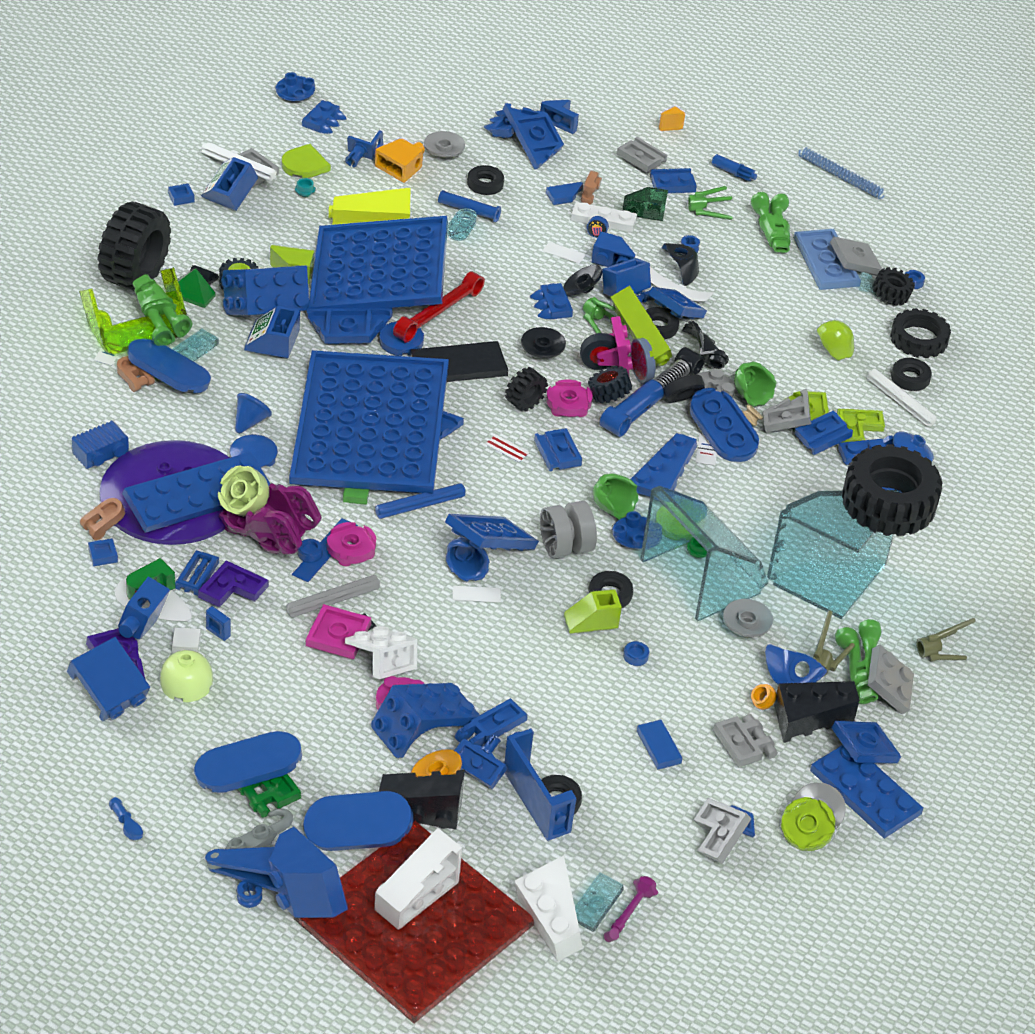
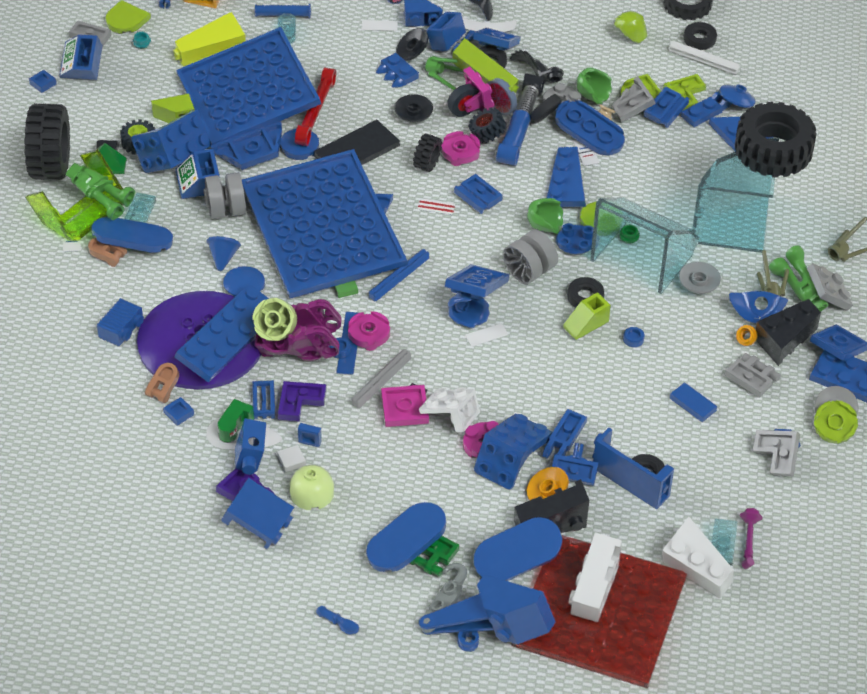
camera: 20 degrees left, 5 degrees up
(224, 155) = (65, 35): white axle -> none
(284, 359) = (219, 196): none -> light grey wheel

